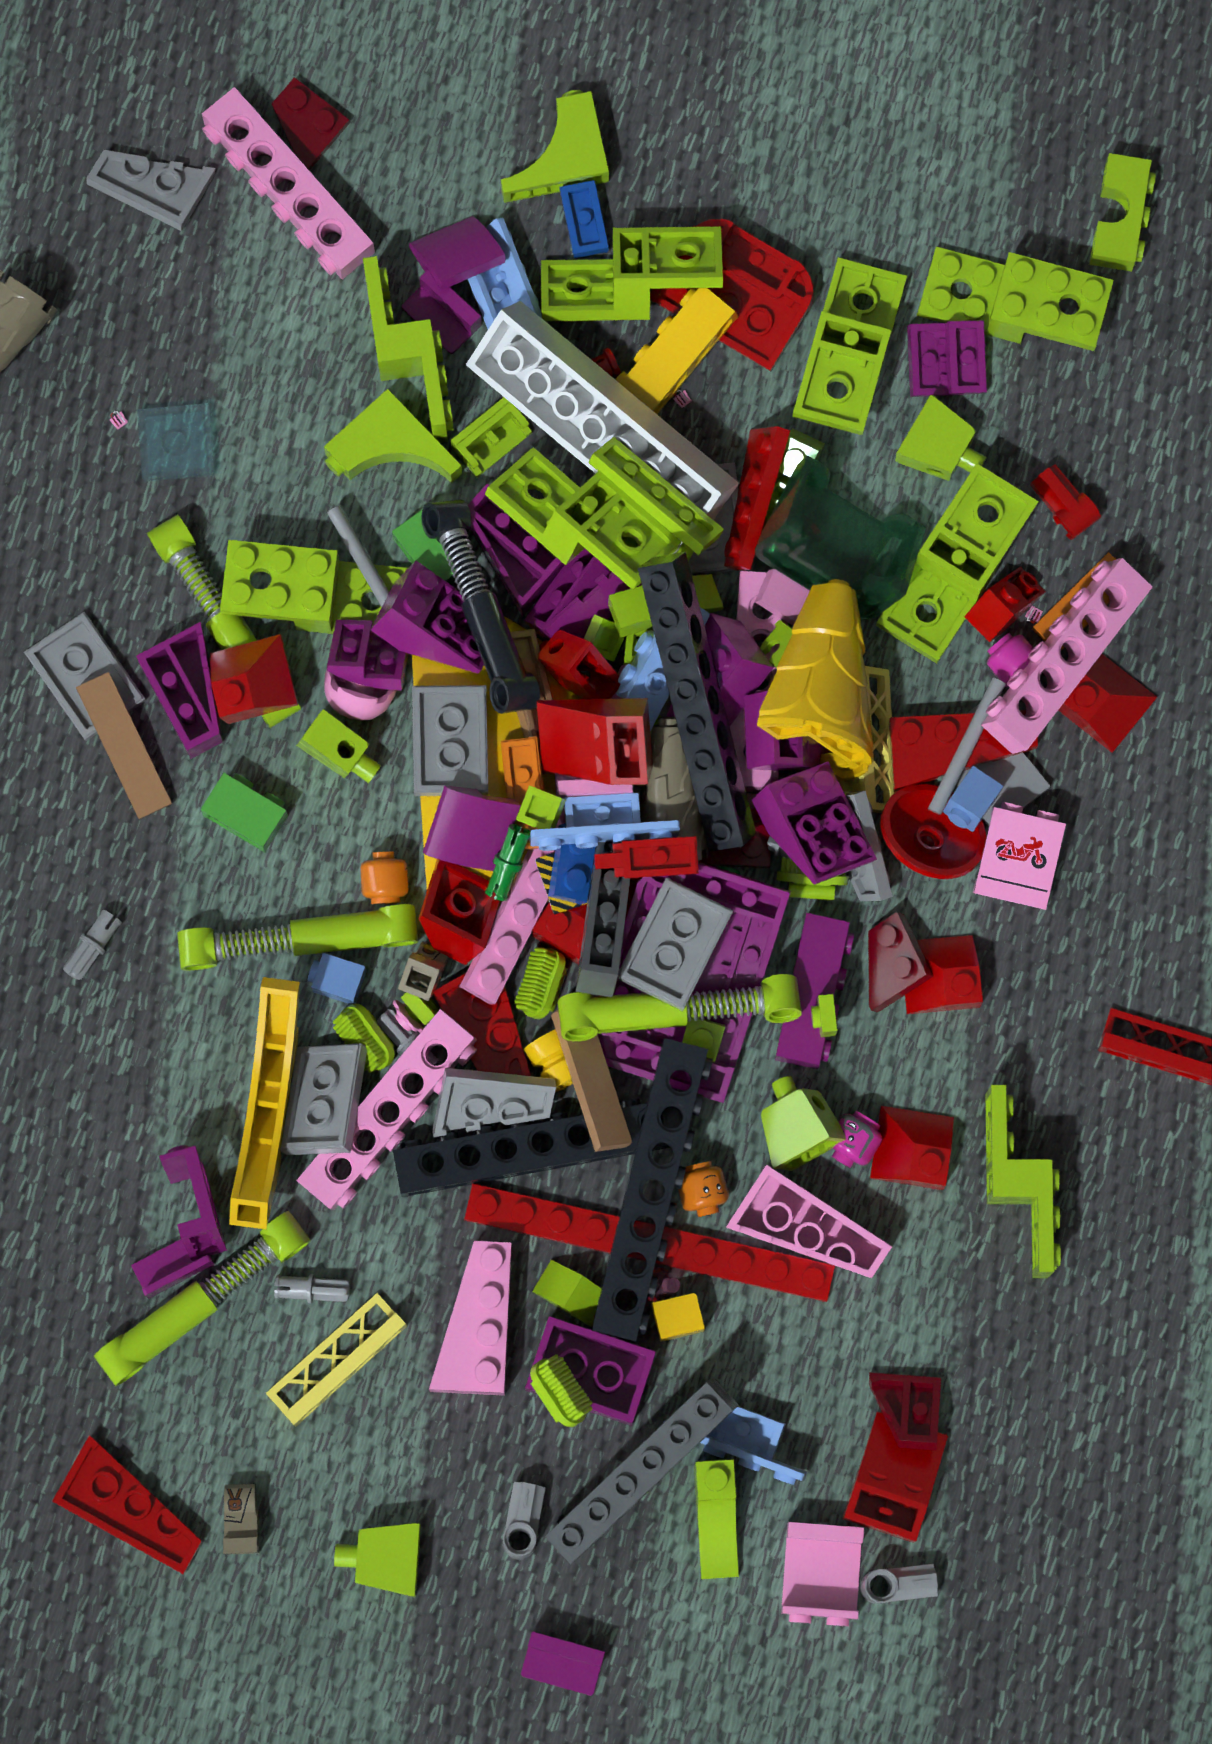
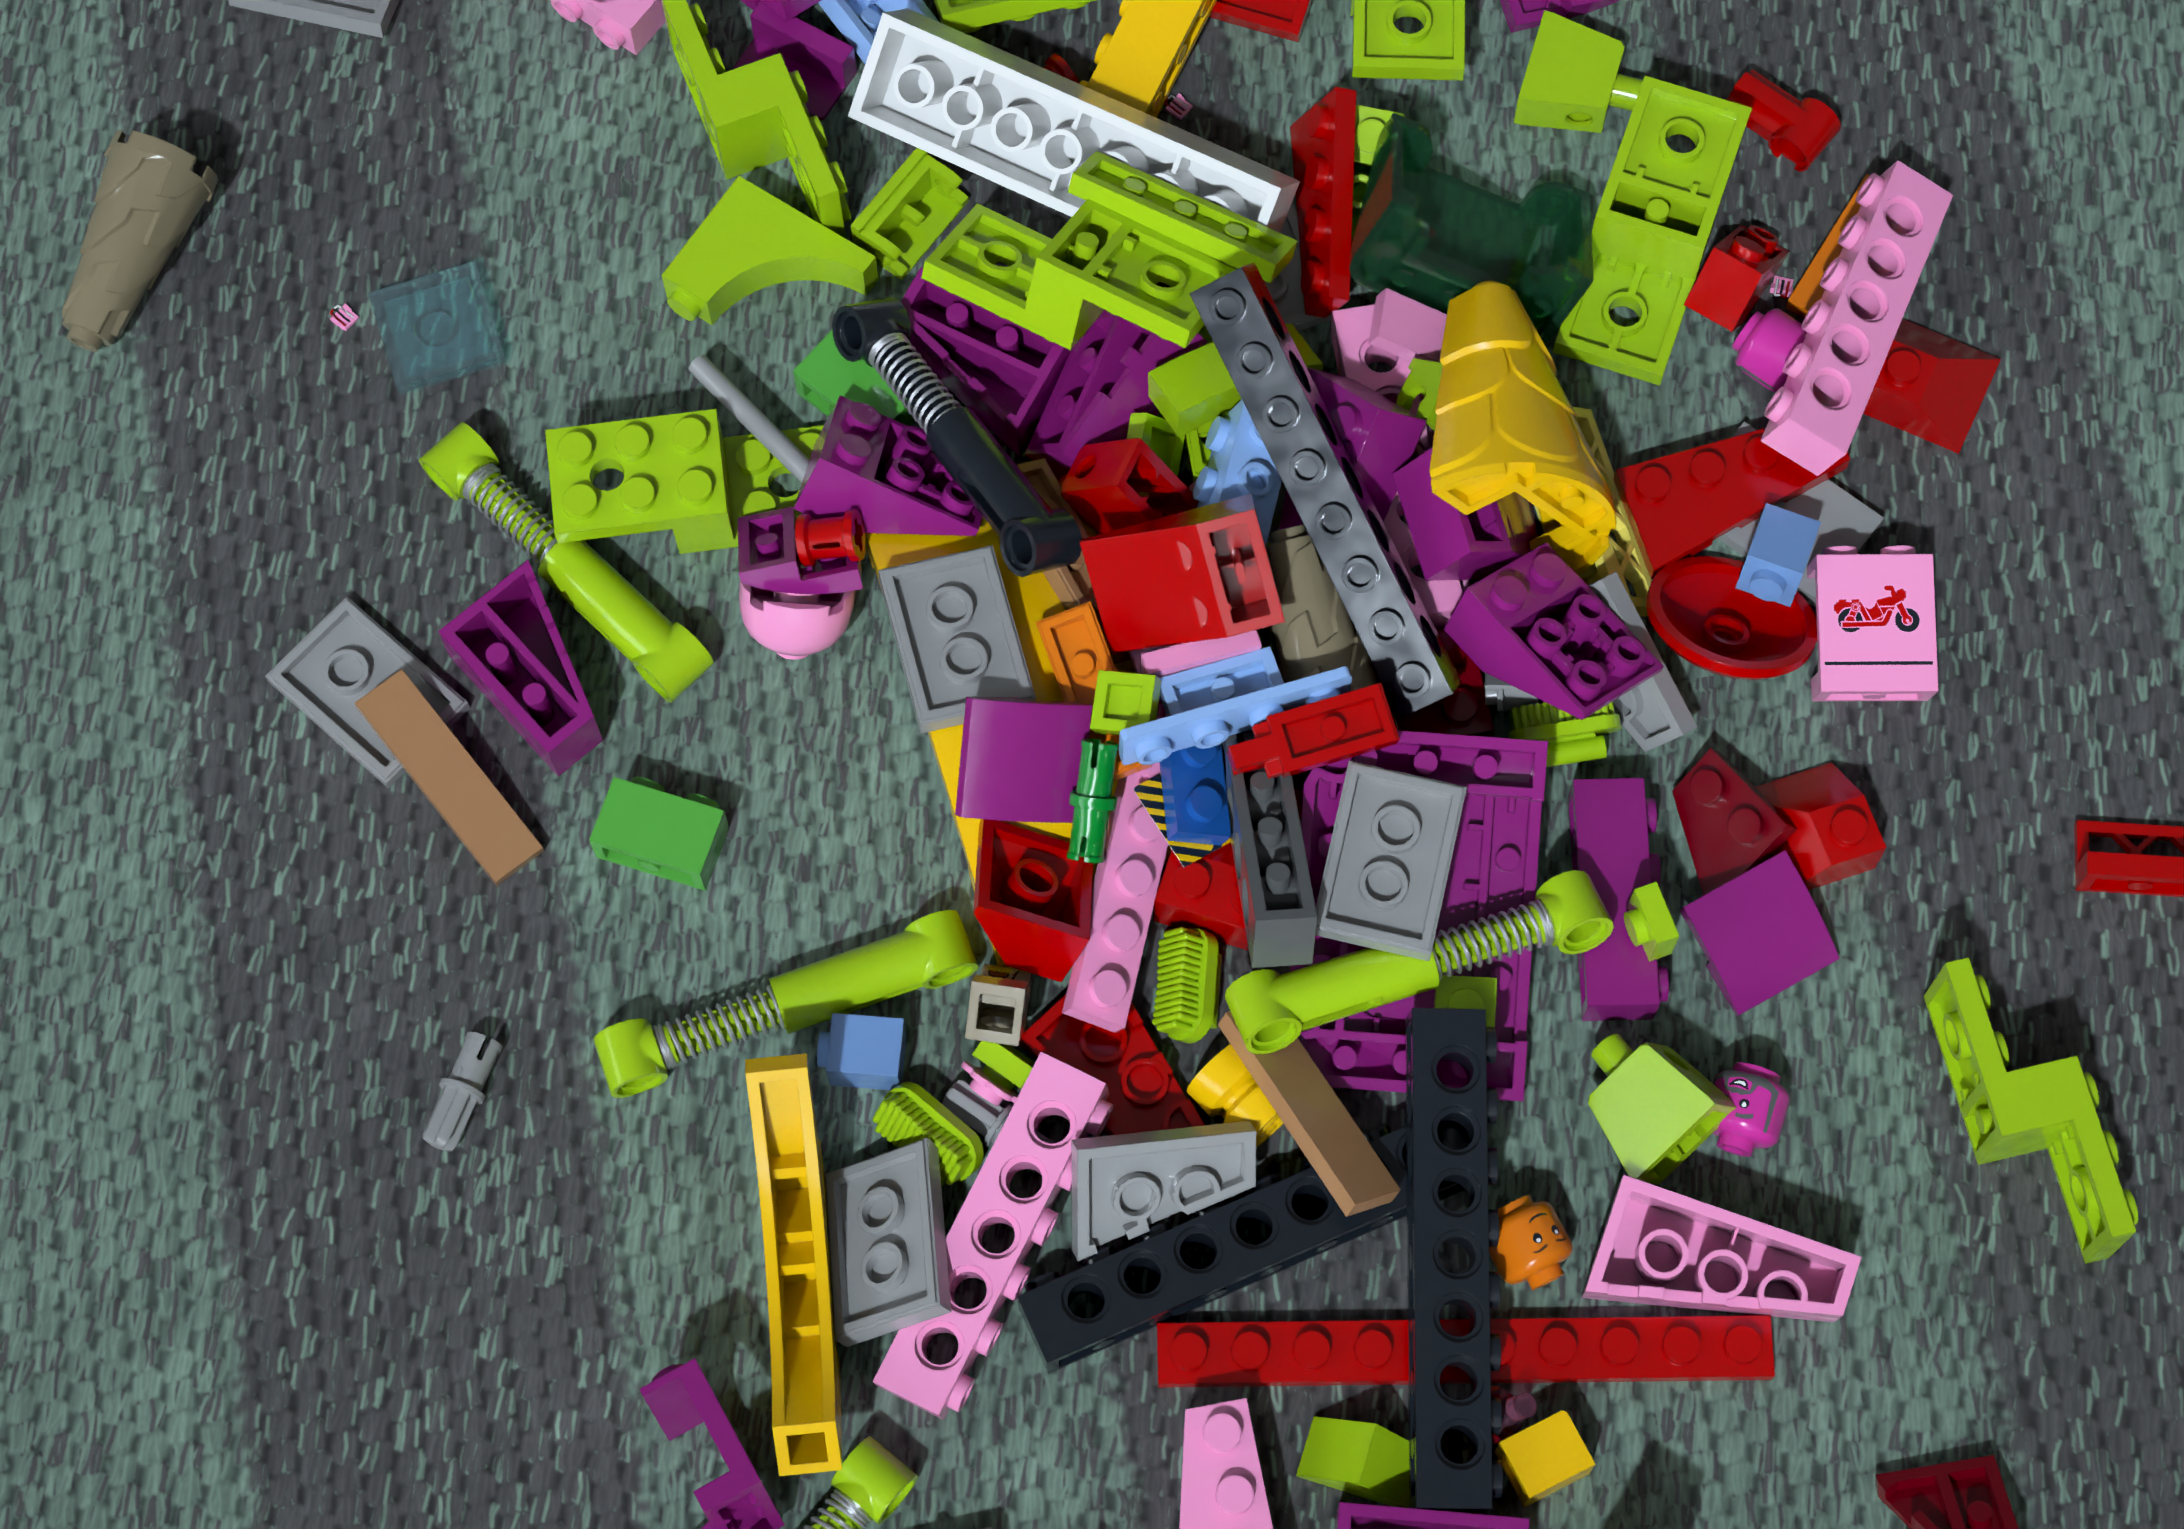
camera: 10 degrees left, 10 degrees down
(252, 680) = (628, 628): red slope -> none
(322, 743) = (761, 697): lime torso -> none
(384, 878) = (902, 881): orange head -> none
(388, 655) = (830, 537): none -> red bush
(895, 1034) = (1760, 933): none -> magenta slope
(913, 1148) = (1843, 1105): red slope -> none
(965, 748) = (1745, 483): light grey bar -> none

